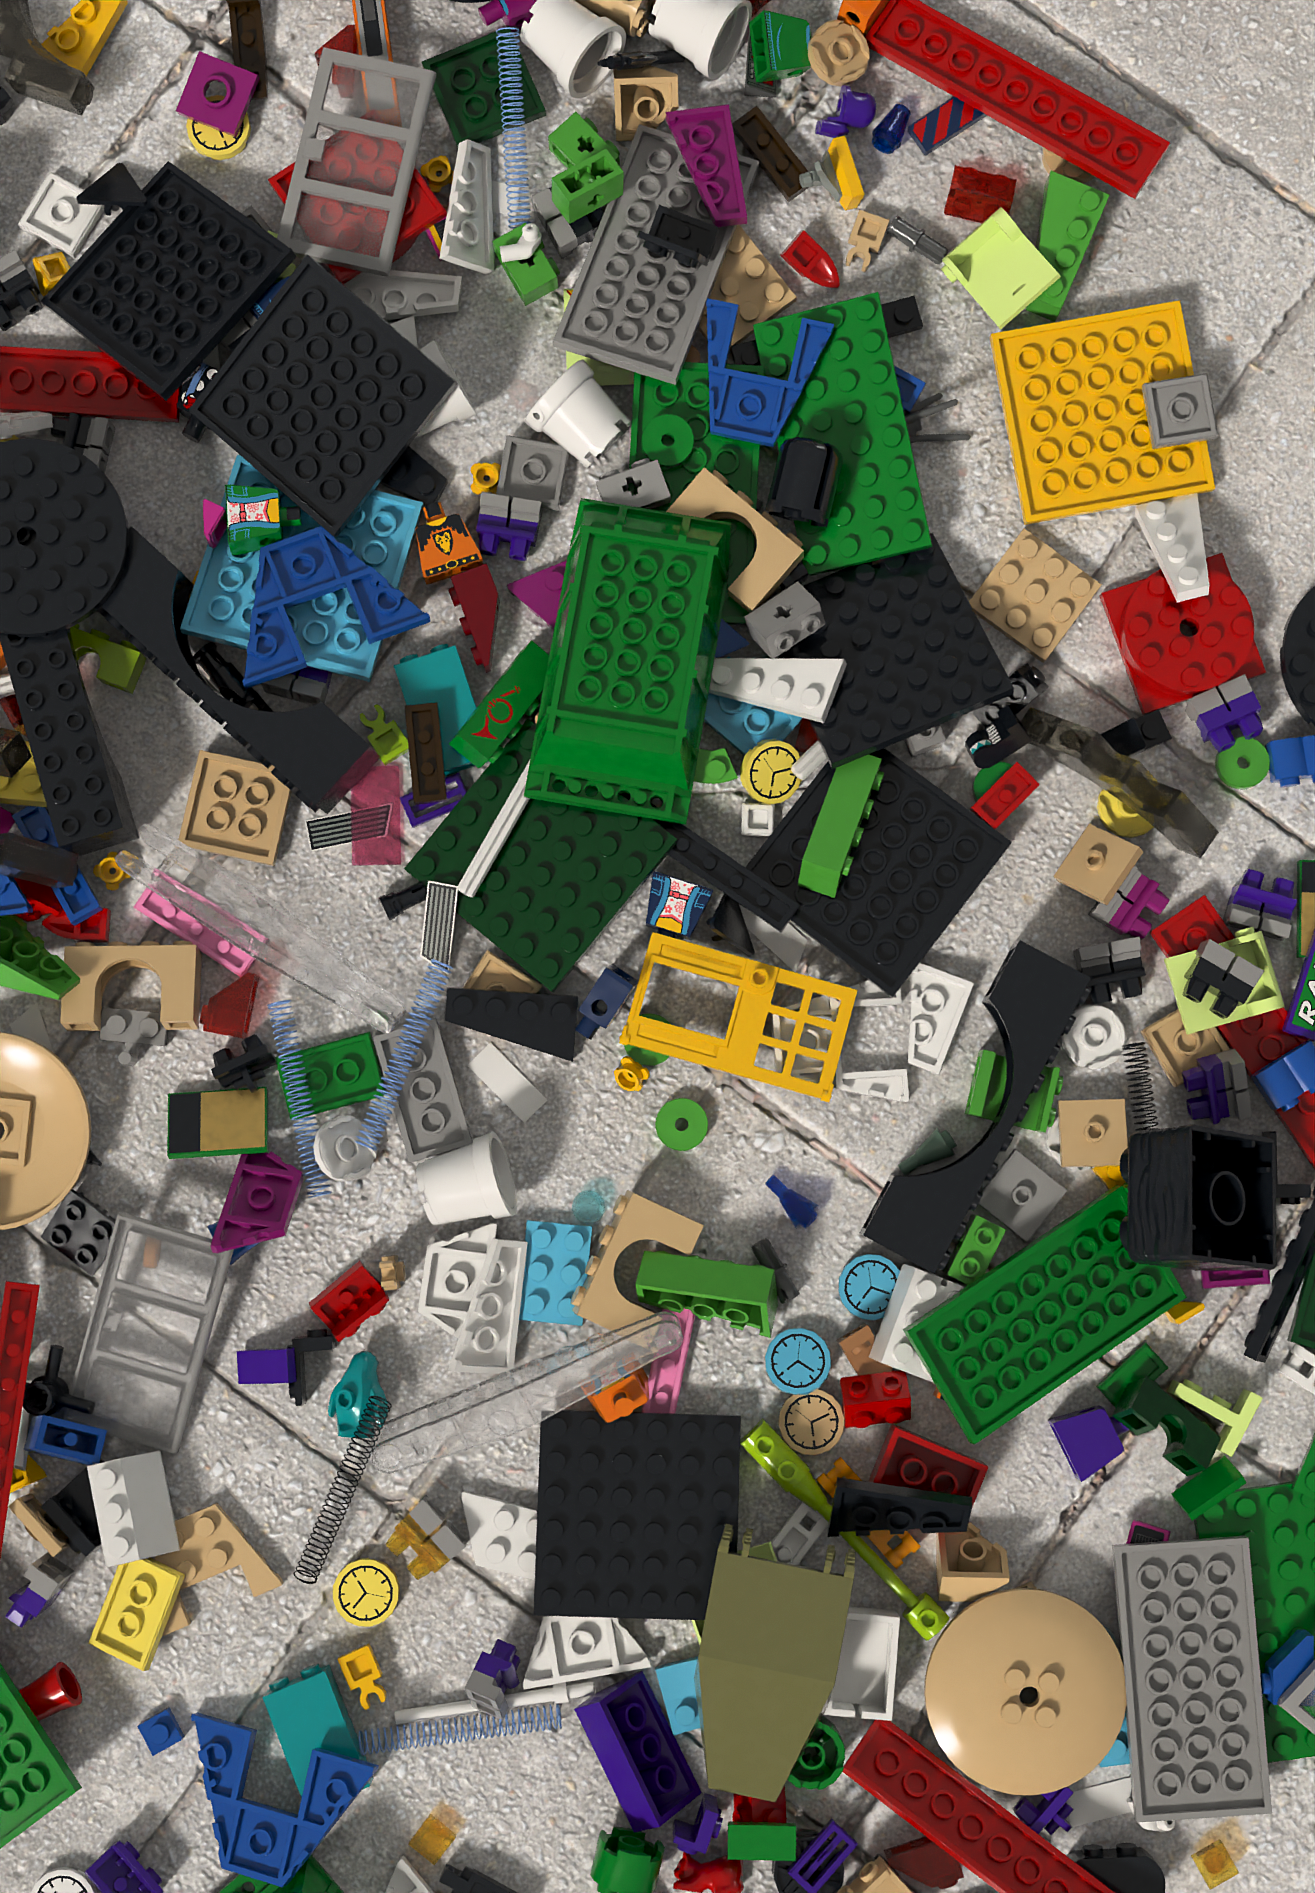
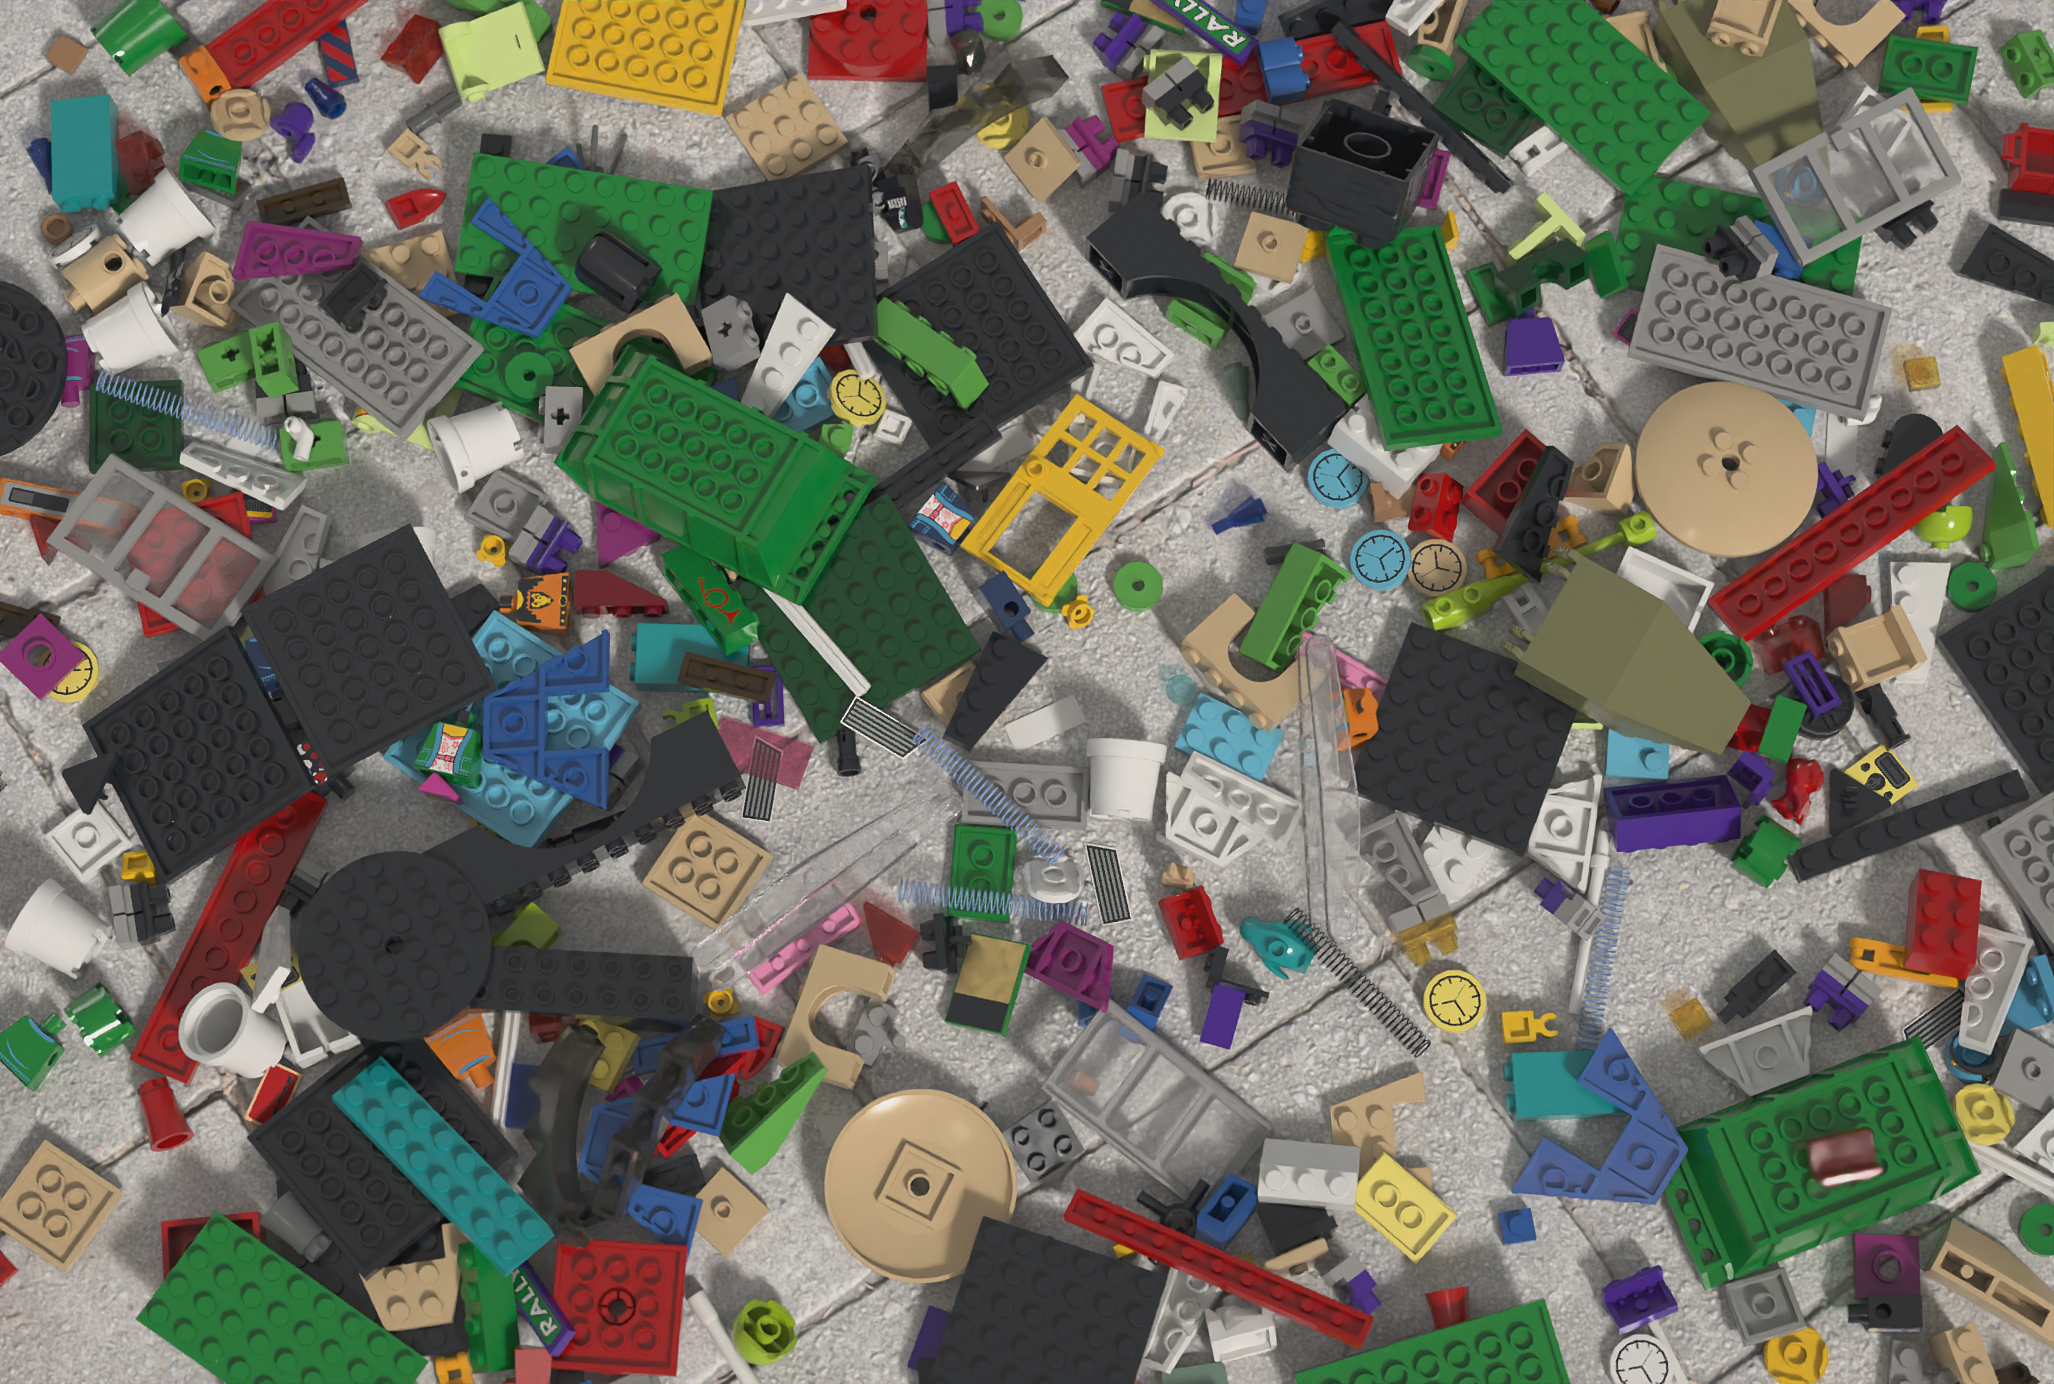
camera: 70 degrees left, 10 degrees down
(254, 1287) = (1149, 1001): none -> blue slope
(366, 1204) = (1108, 884): none -> sticker
(489, 1485) = (1397, 858): none -> light grey wing
(836, 174) = (348, 155): yellow piece -> none
(864, 1818) = (1788, 641): none -> clear red bracket
(1019, 876) = (1027, 229): none -> medium nougat bracket
(1189, 745) = (968, 51): none -> clear smoke rock
(1272, 1632) = (1741, 250): none -> black hips

